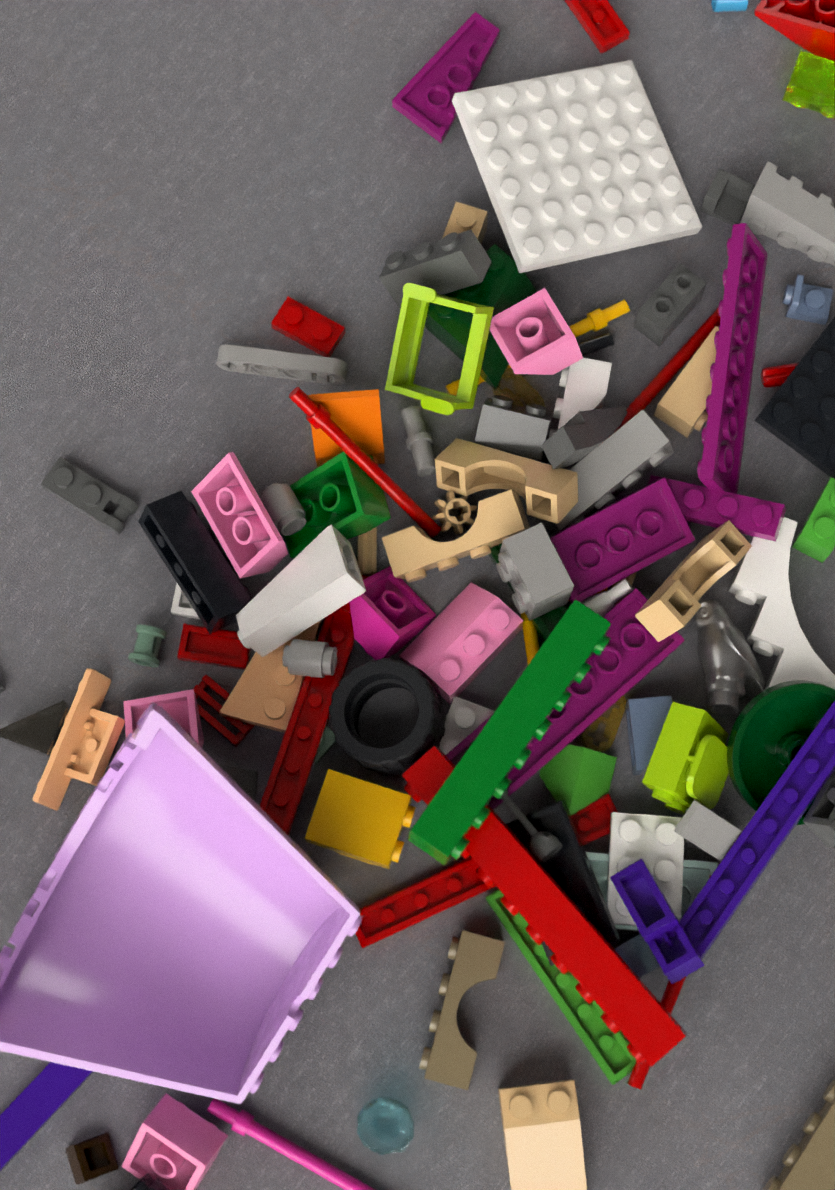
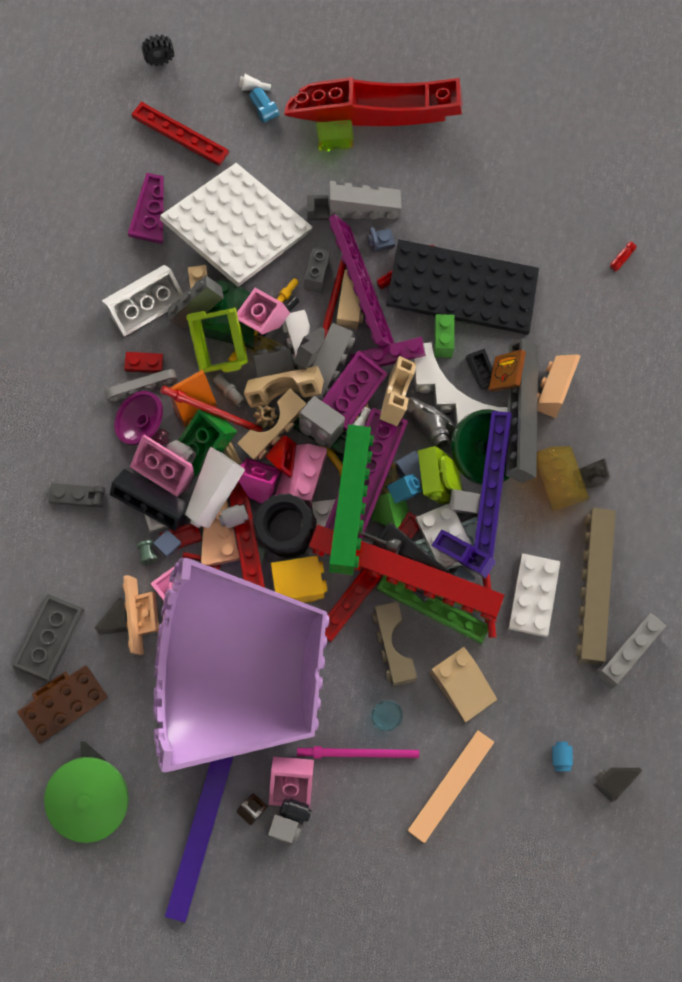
camera: 35 degrees left, 5 degrees down
(185, 648) = (167, 543): none -> sand blue tile
(247, 416) = (137, 417): none -> magenta dish
(267, 464) = (161, 437): none -> clear pink plate
(358, 223) = (143, 300): none -> white slope
(446, 596) = (283, 455): none -> red slope
(618, 754) = (404, 488): none -> dark azure brick
(747, 1049) = (534, 595): none -> white plate

